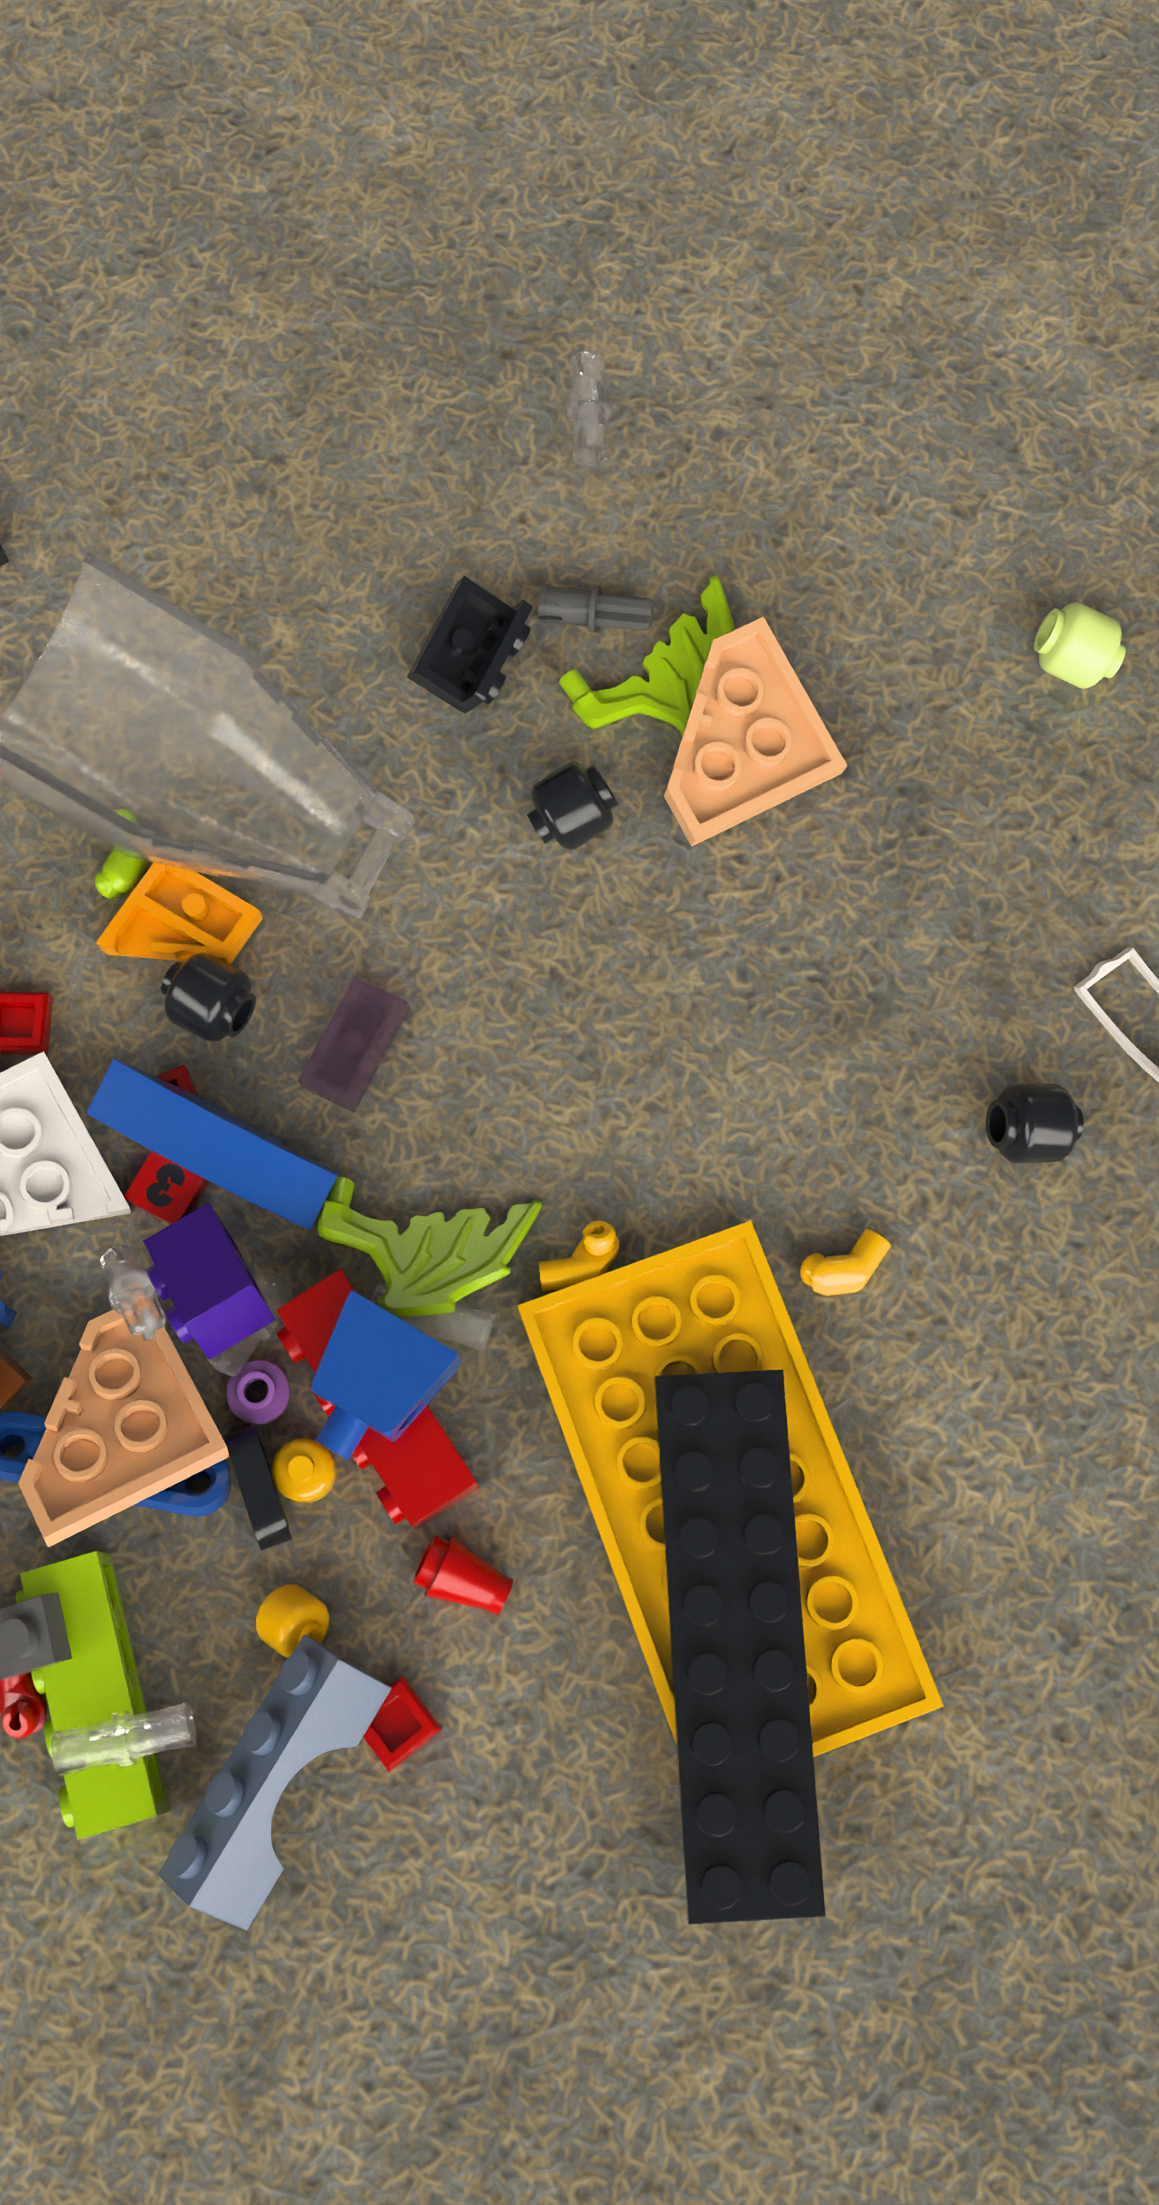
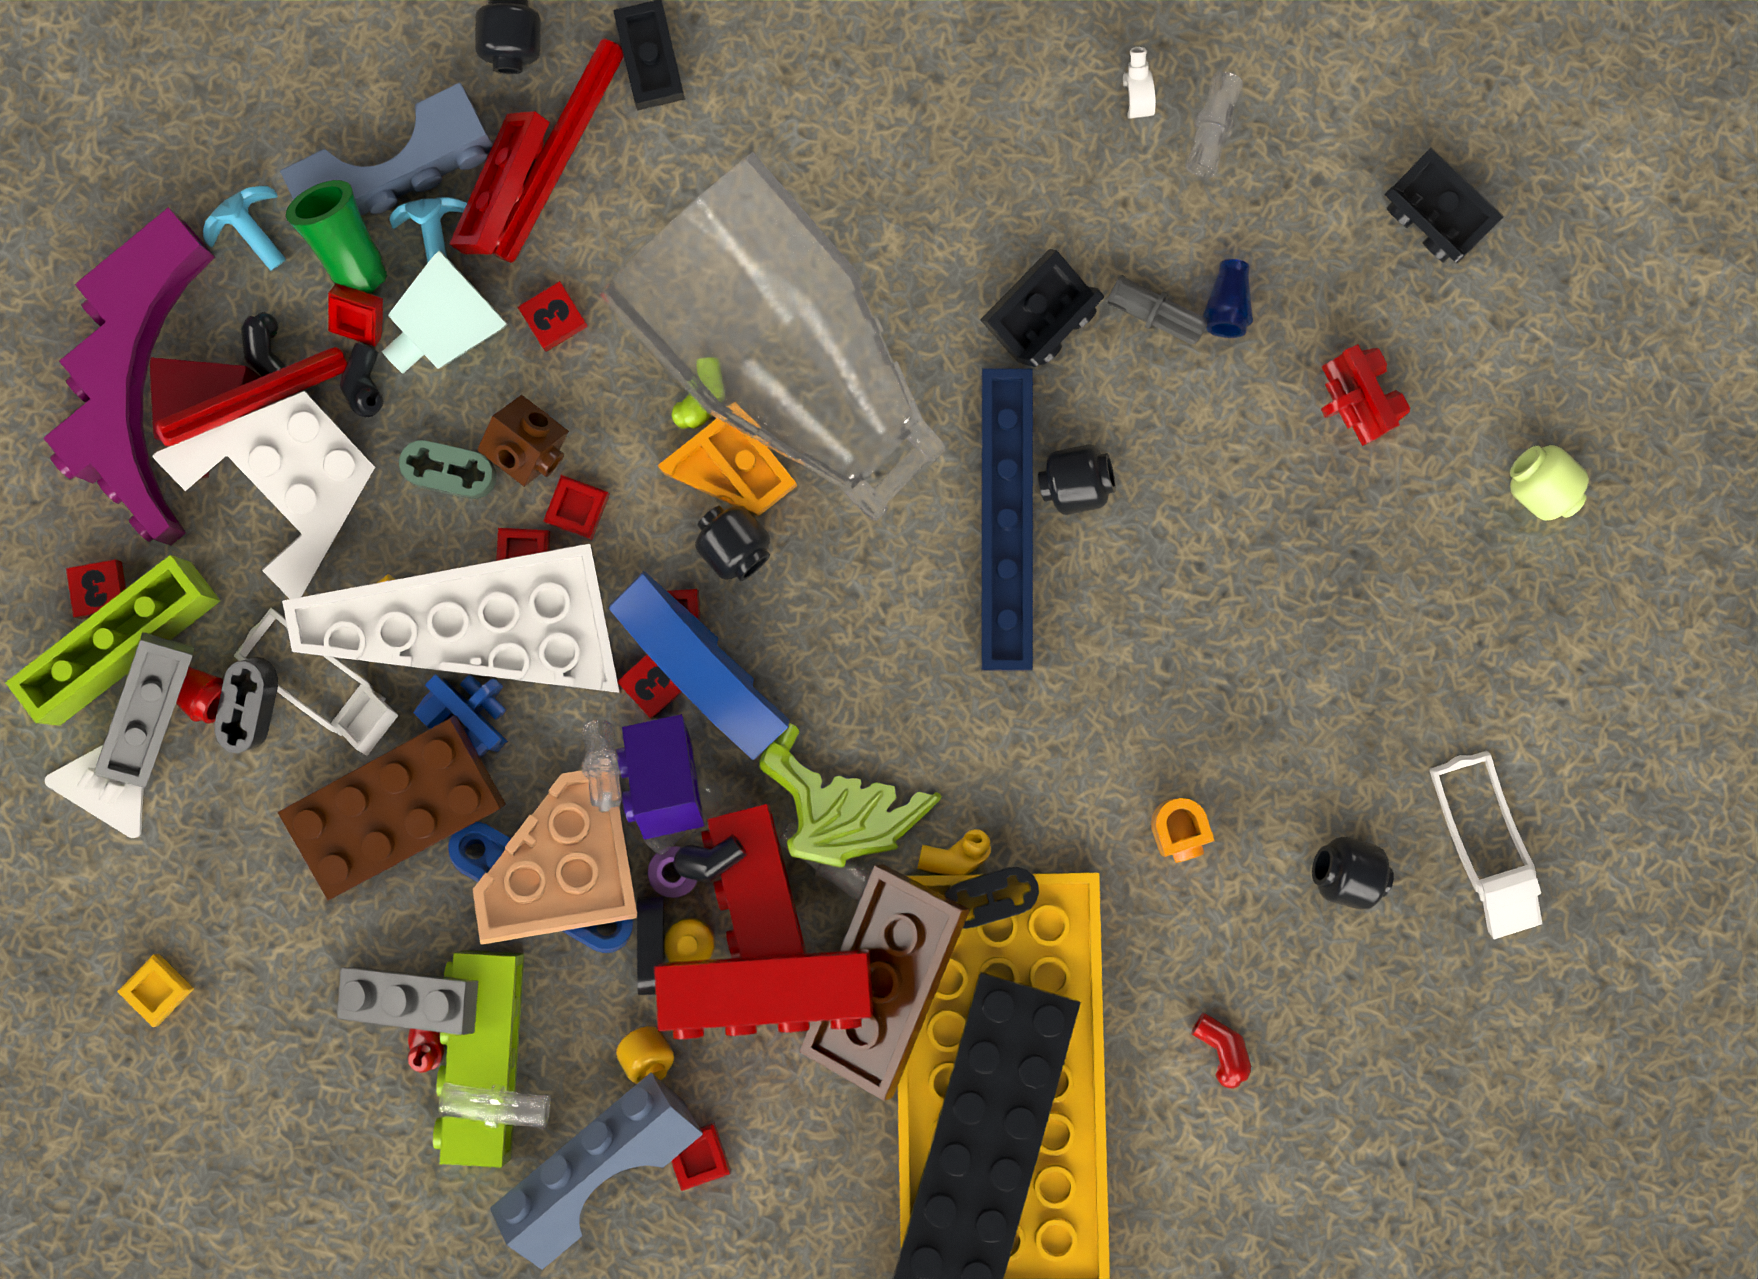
camera: 25 degrees right, 10 degrees up
(291, 1359) = (707, 864): none -> black arm
(354, 1044) = (835, 619): clear purple plate -> none
(377, 1375) = (767, 903): blue torso -> none
(404, 1481) = (764, 991): none -> red brick
(460, 1576) = (780, 1065): red cone -> none
(496, 393) = (1139, 85): none -> white piece
(510, 878) = (1007, 519): none -> dark blue plate
(546, 1428) = (909, 947): none -> plate
(626, 1275) = (992, 882): none -> black beam
(670, 575) = (1229, 303): none -> clear blue cone
(671, 671) = (1212, 395): lime animal -> none
(747, 737) = (1242, 468): light nougat plate -> none
(825, 1139) = (1181, 829): none -> light orange plate
(845, 622) = (1359, 395): none -> red hips
(845, 1272) = (1159, 937): yellow arm -> none
(858, 412) = (1442, 207): none -> black bracket
(973, 1369) = (1230, 1047): none -> red arm

